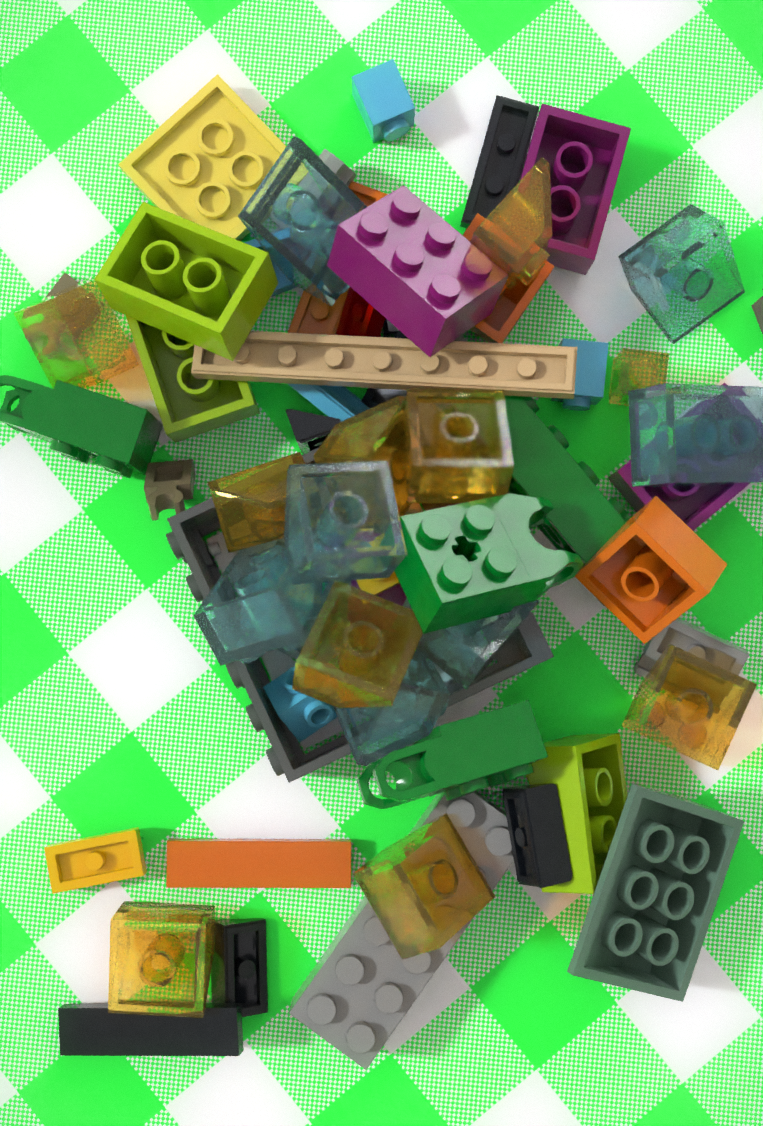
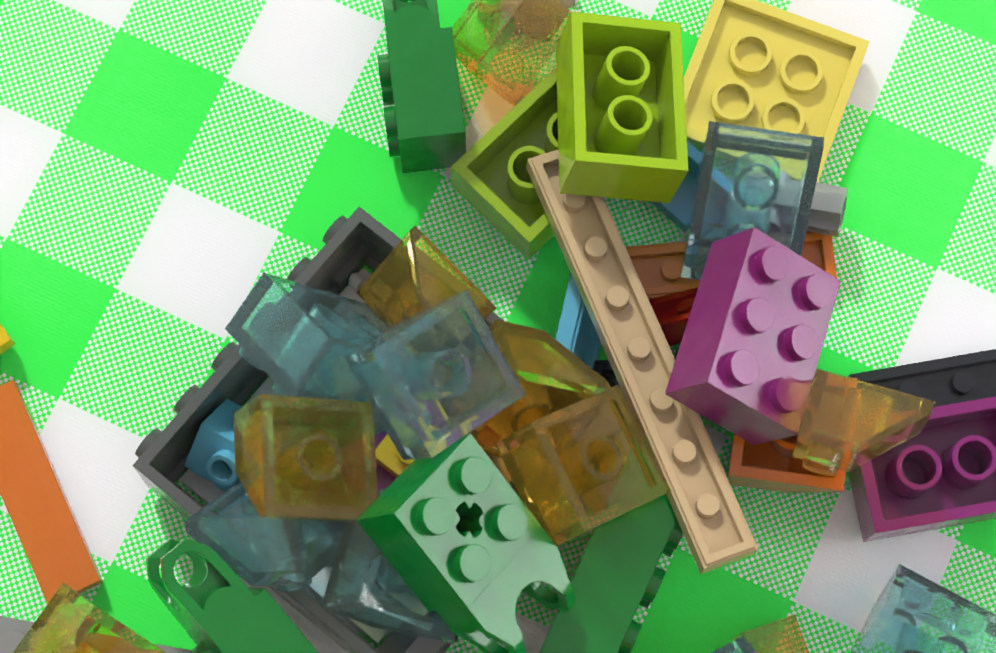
camera: 65 degrees right, 10 degrees down
(169, 485) = (401, 198): dark tan plate -> none
(310, 428) = (530, 308): black slope -> none
(383, 101) = (934, 228): medium azure brick -> none
(589, 374) = (746, 586): medium azure brick -> none

